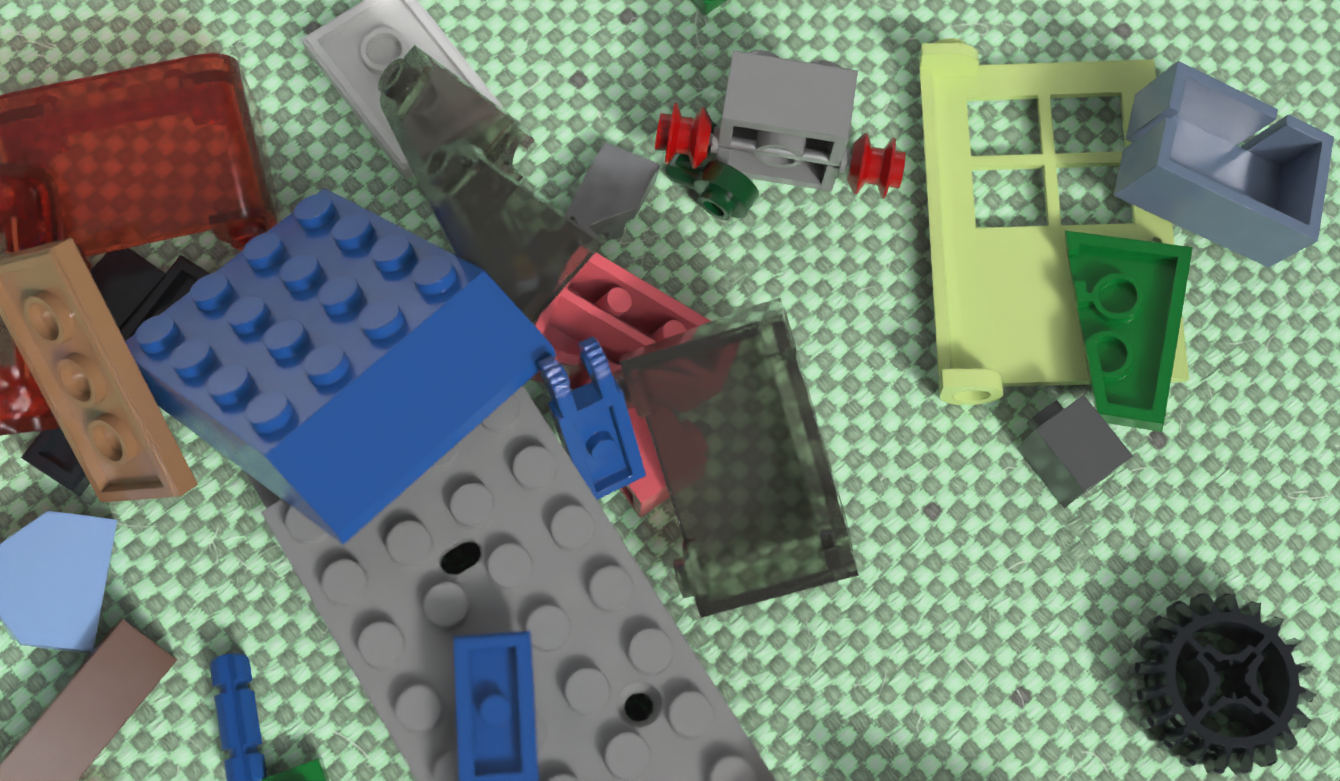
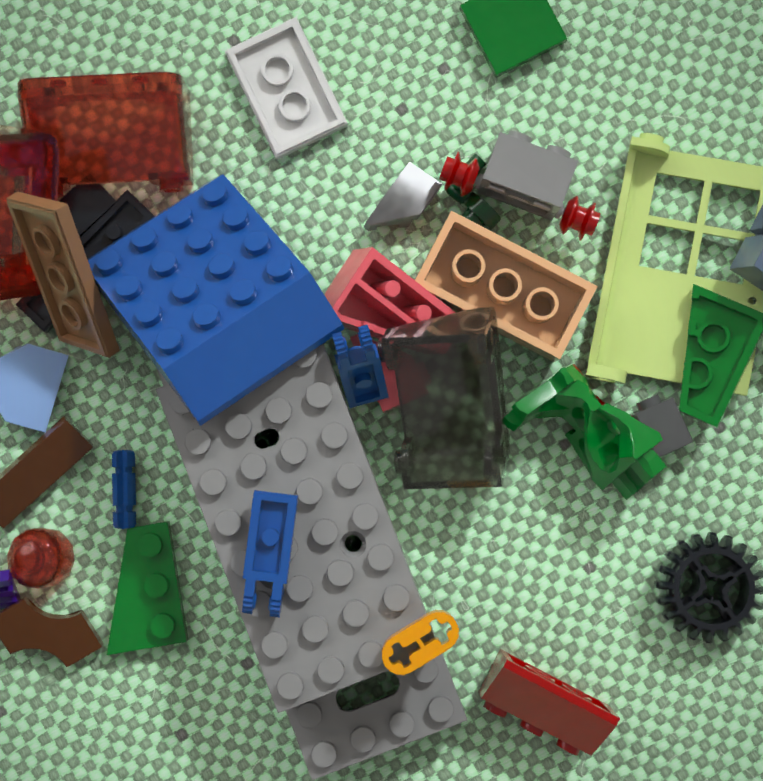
camera: 20 degrees right, 15 degrees up
(464, 165) = (308, 173): clear smoke windscreen -> none
(840, 286) = (531, 296): none -> light nougat brick
(1009, 487) = (606, 439): none -> green hips

